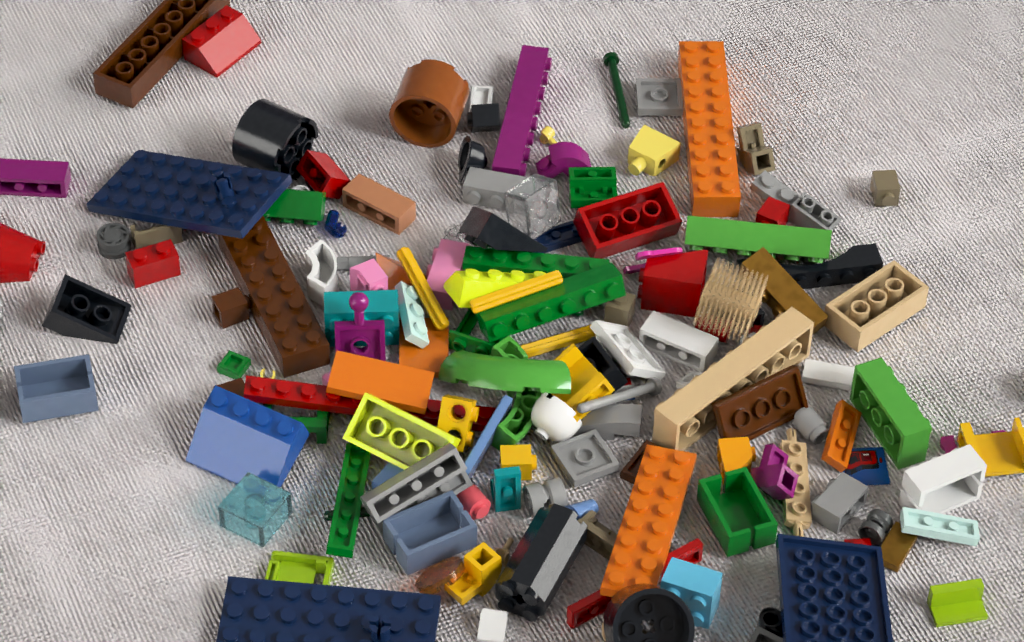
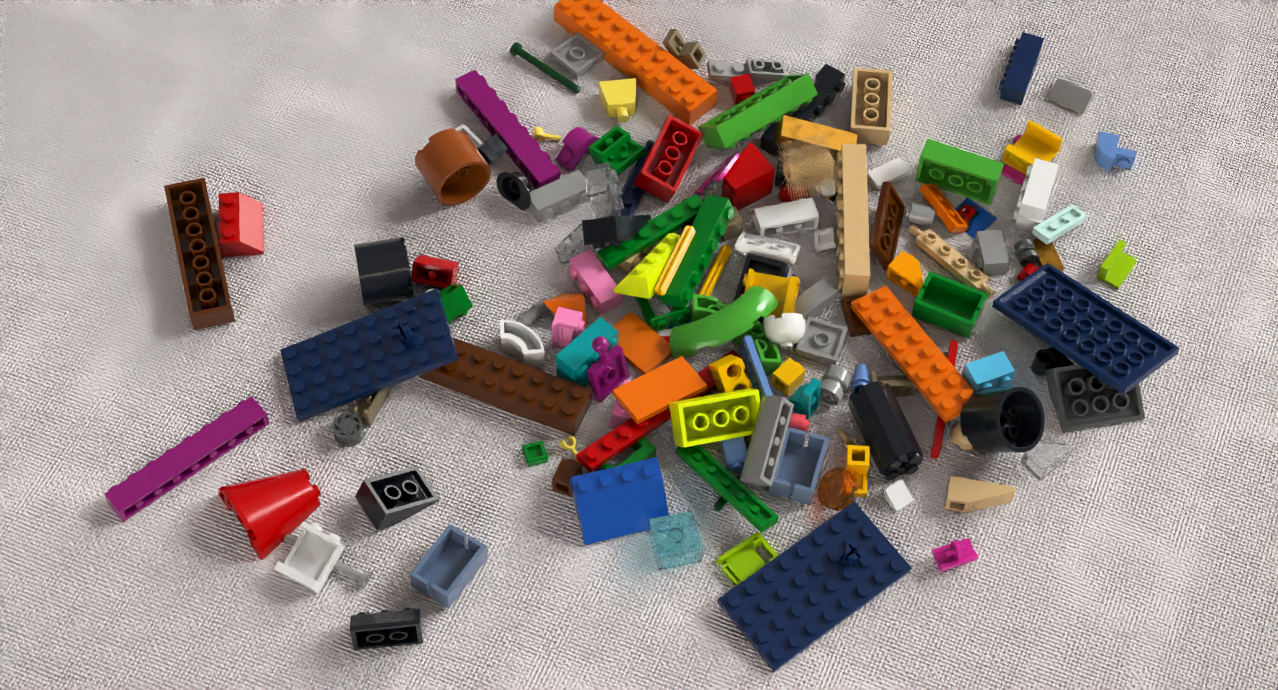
camera: 45 degrees left, 10 degrees up
(153, 263) = (398, 424): red brick -> none
(231, 307) = (487, 414): reddish brown brick -> none
(332, 225) = (481, 305): clear blue arm -> none
(379, 204) = (493, 264): nougat brick -> none
(412, 315) = (627, 335): light aqua plate -> none
(422, 288) = (602, 303): yellow axle -> none
(652, 386) = (804, 262): light grey bar -> none
(773, 475) = (949, 266): magenta brick -> none
(885, 188) = (783, 21): dark tan brick -> none

